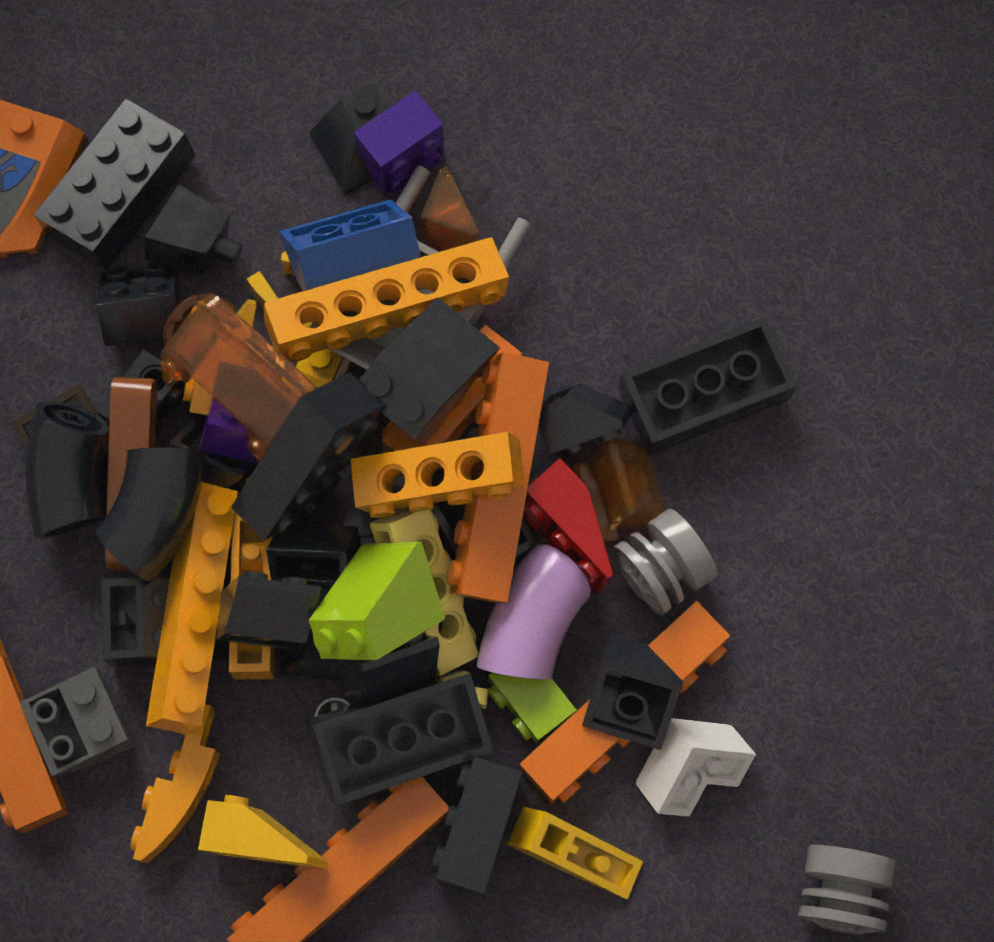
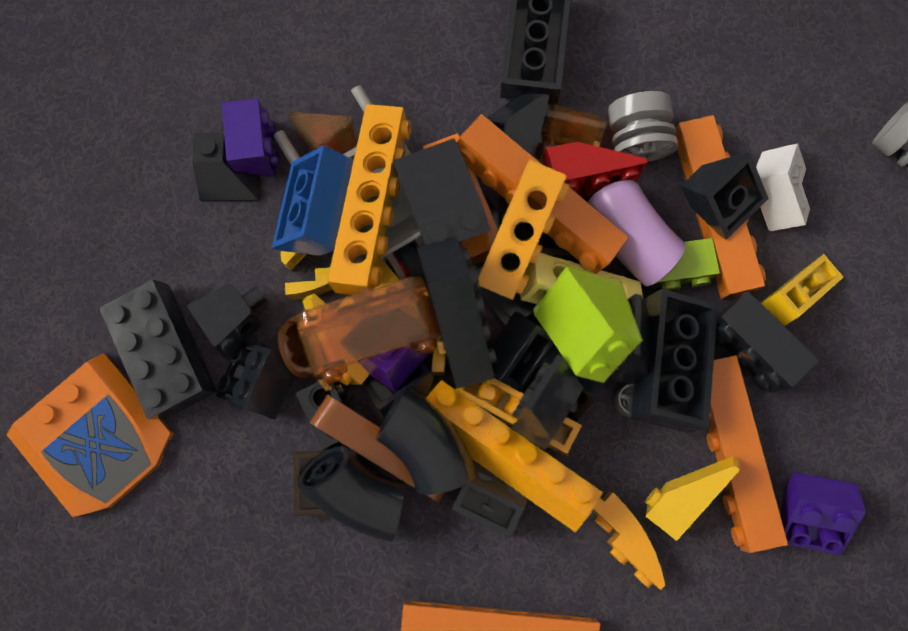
camera: 55 degrees left, 5 degrees up
(77, 723) = (541, 581): dark grey slope -> none

